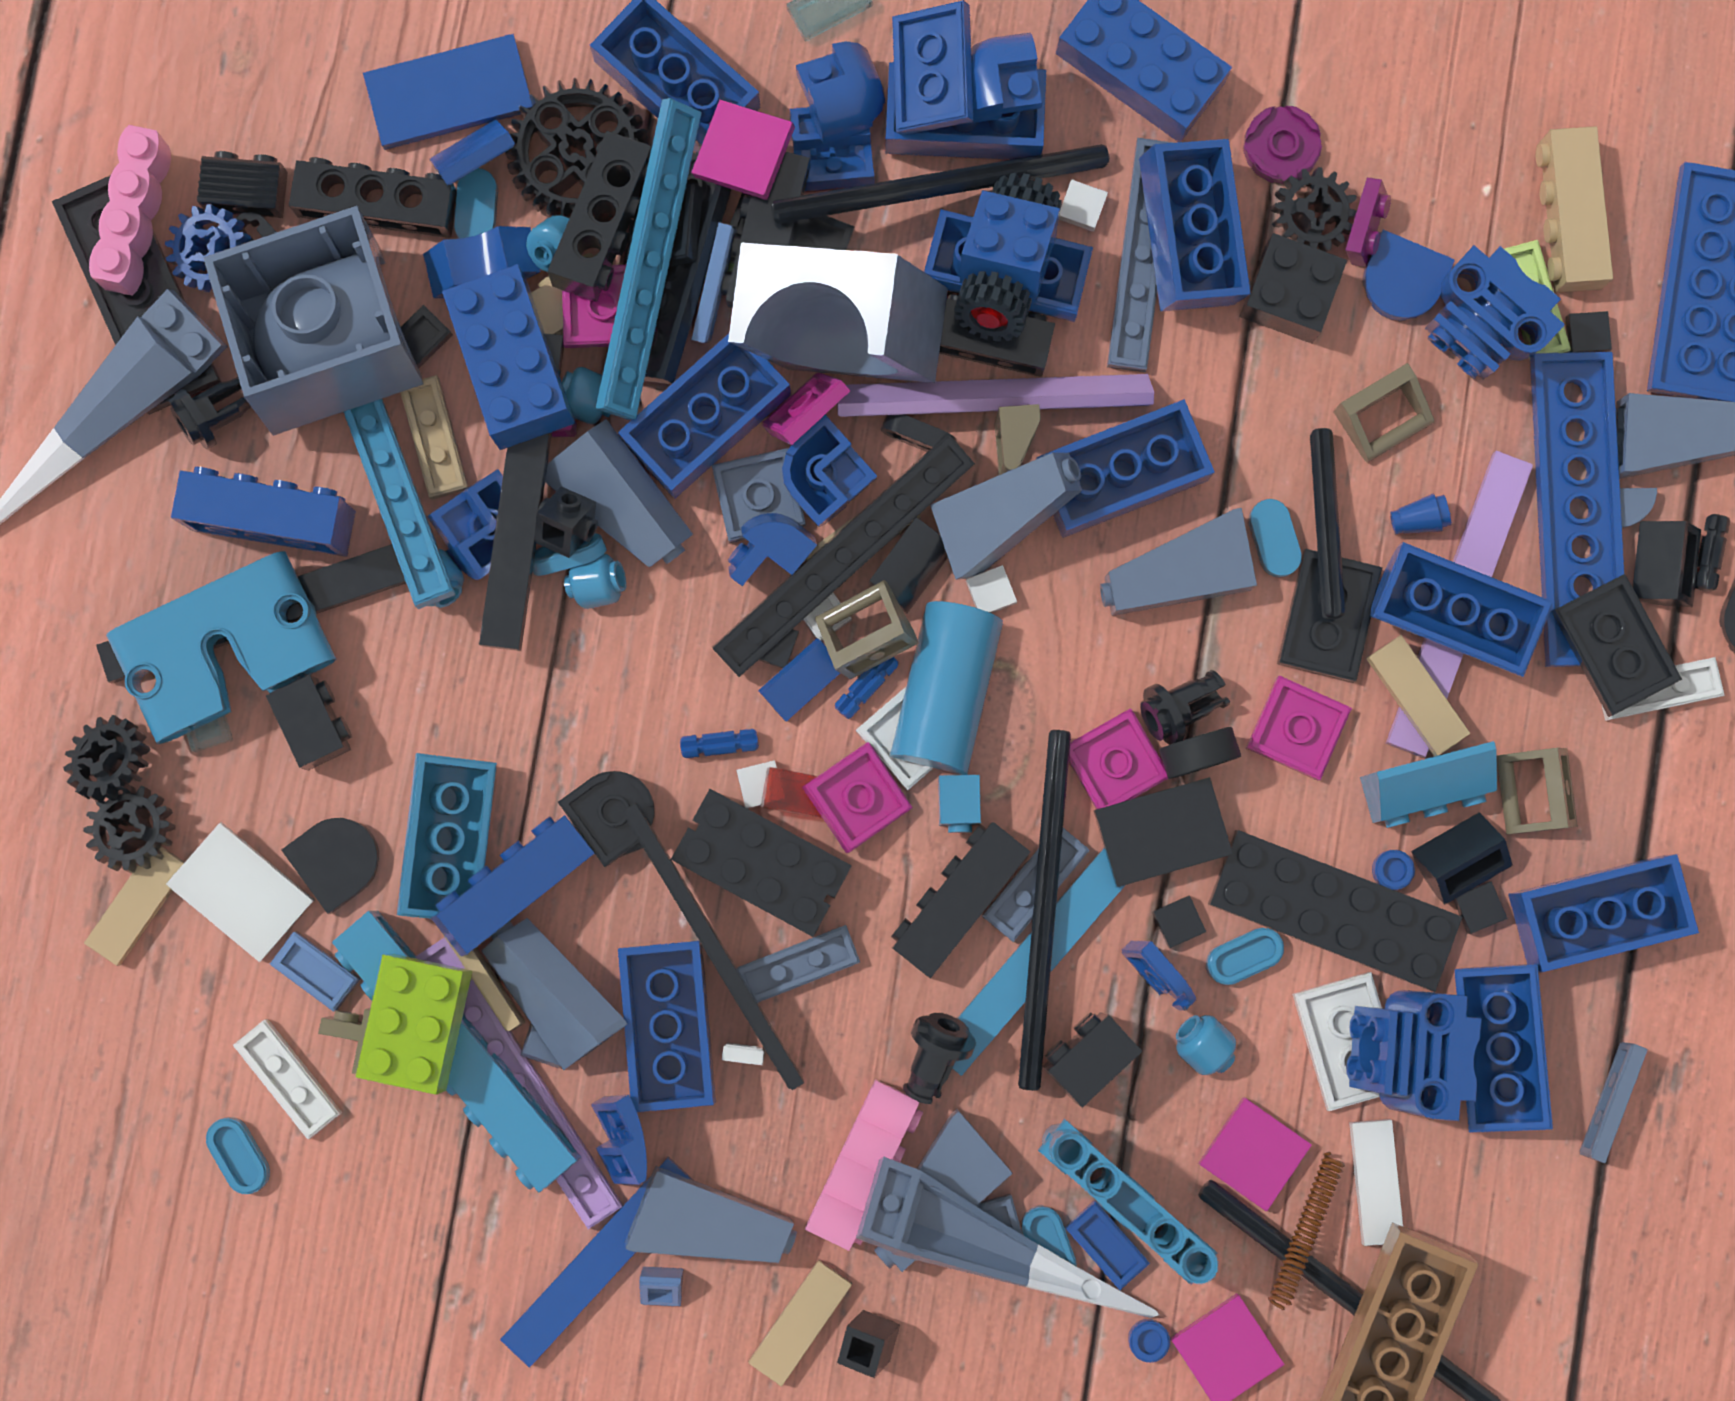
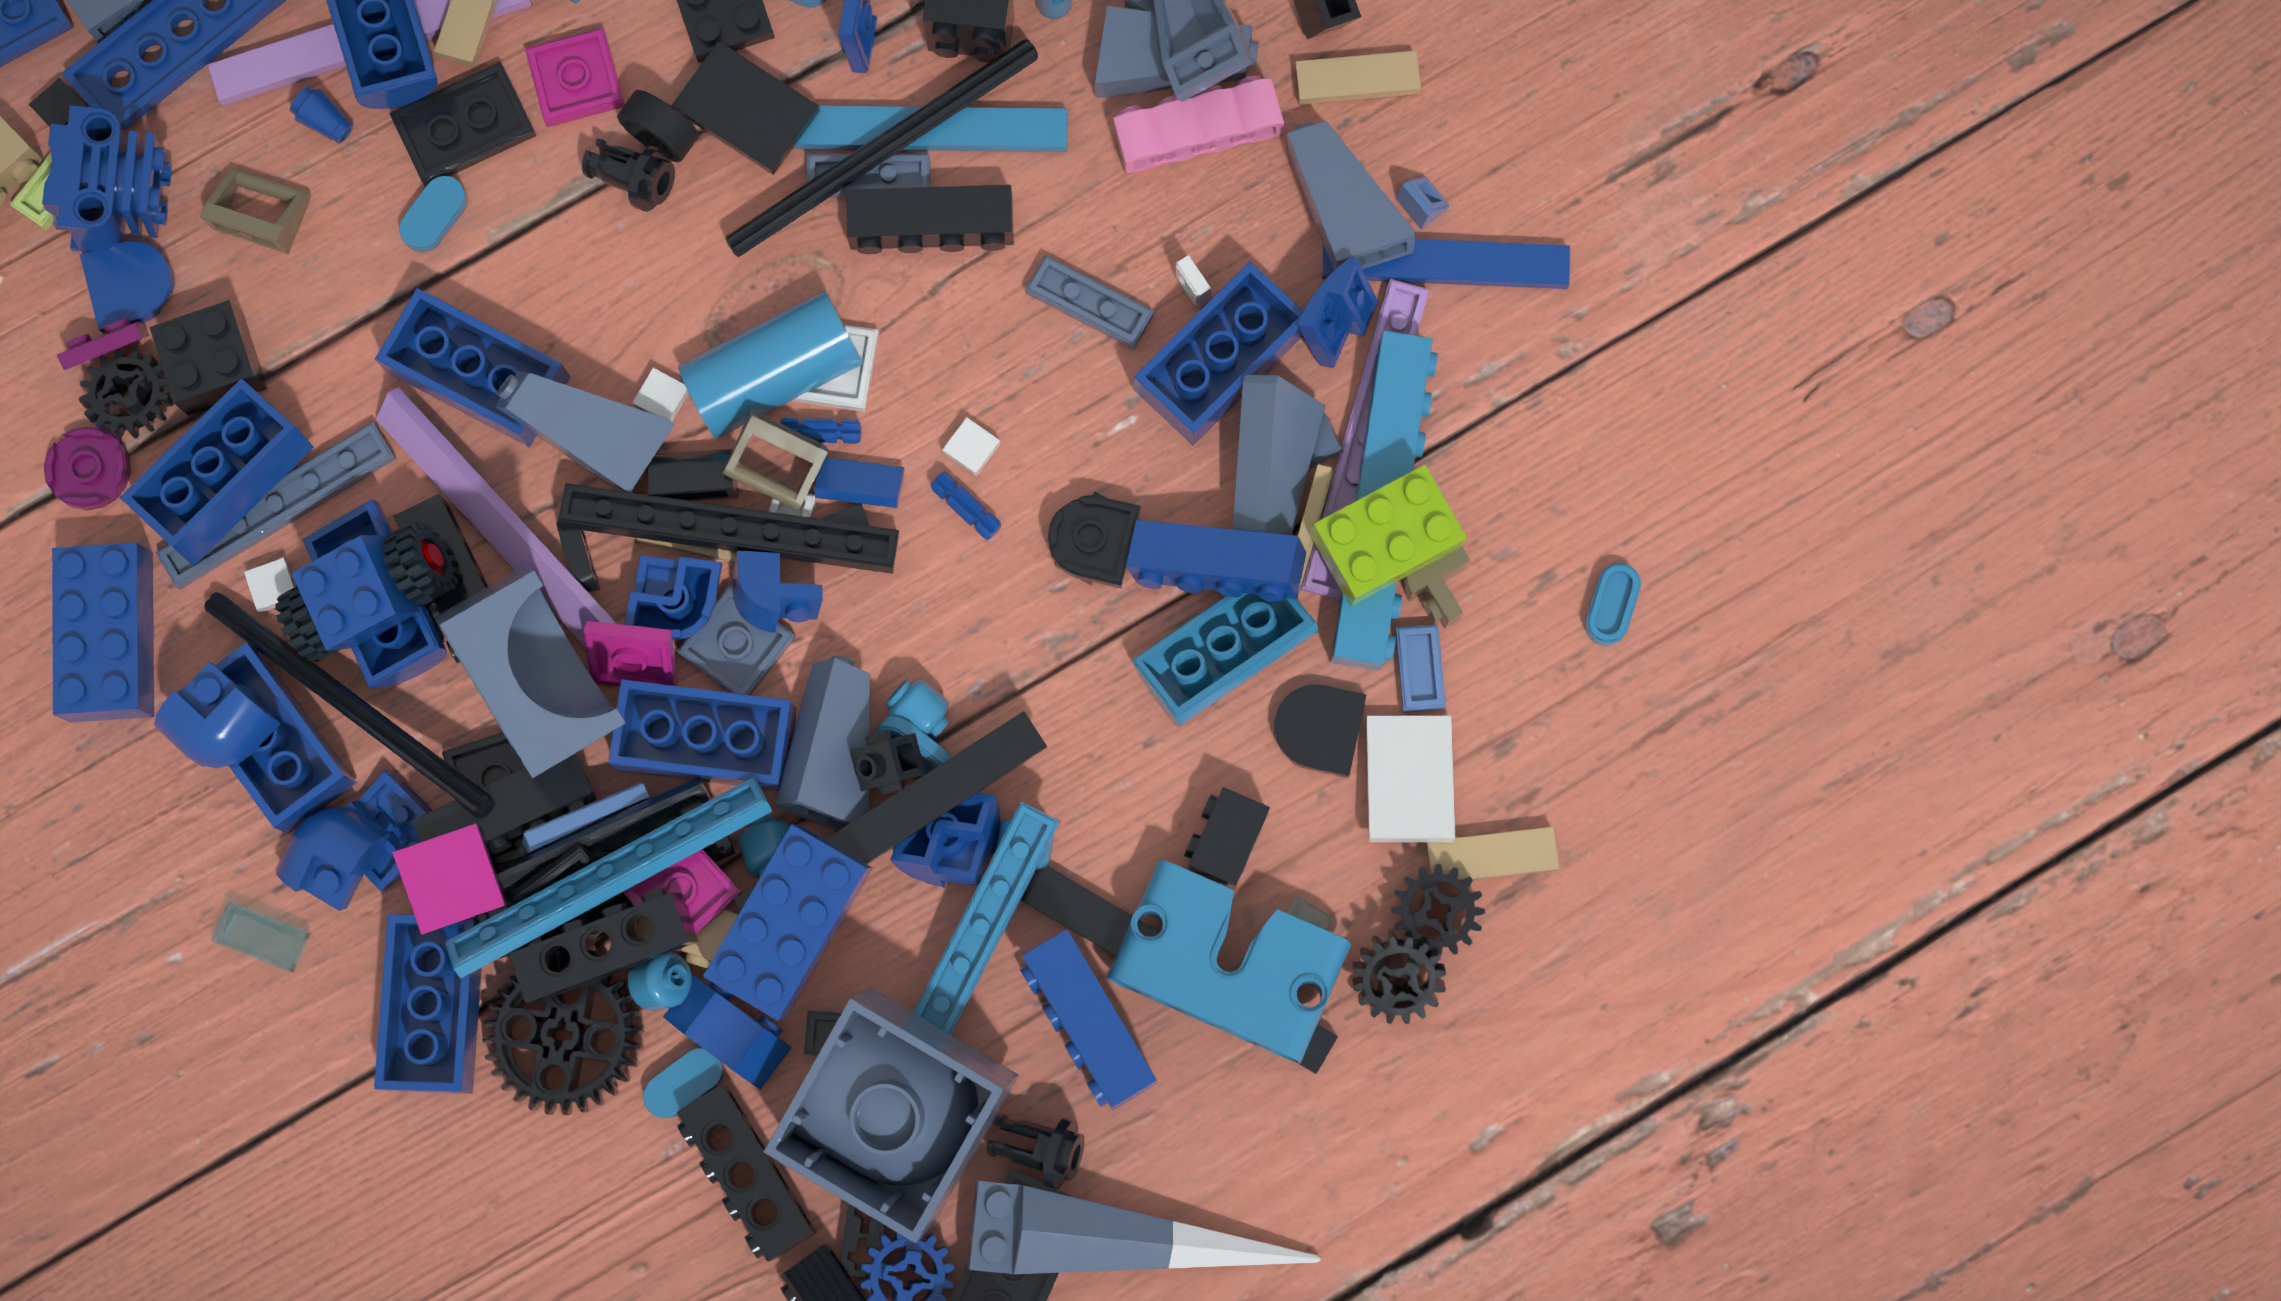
camera: 125 degrees left, 5 degrees down
(287, 1079) = (1521, 617): white tile -> none
(434, 439) = (912, 945): tan tile -> none
(447, 91) = (600, 1195): blue tile -> none
(472, 152) = (637, 1118): blue tile -> none
(713, 946) = (1127, 369): black tile -> none
(761, 862) = (1032, 388): black piece -> none
(785, 792) = (950, 404): clear red tile -> none
(857, 797) = (917, 360): dark pink tile -> none
(932, 68) = (250, 777): blue tile -> none
(941, 1043) = (1054, 134): black piece -> none
(959, 802) = (854, 280): dark azure brick -> none
(1014, 434) = (521, 467): dark tan tile -> none
(1116, 761) = (718, 190): dark pink tile -> none
(1179, 921) = (806, 45): black tile -> none
(1192, 567) = (511, 255): sand blue slope -> none
(1327, 523) = (387, 179): black axle -> none

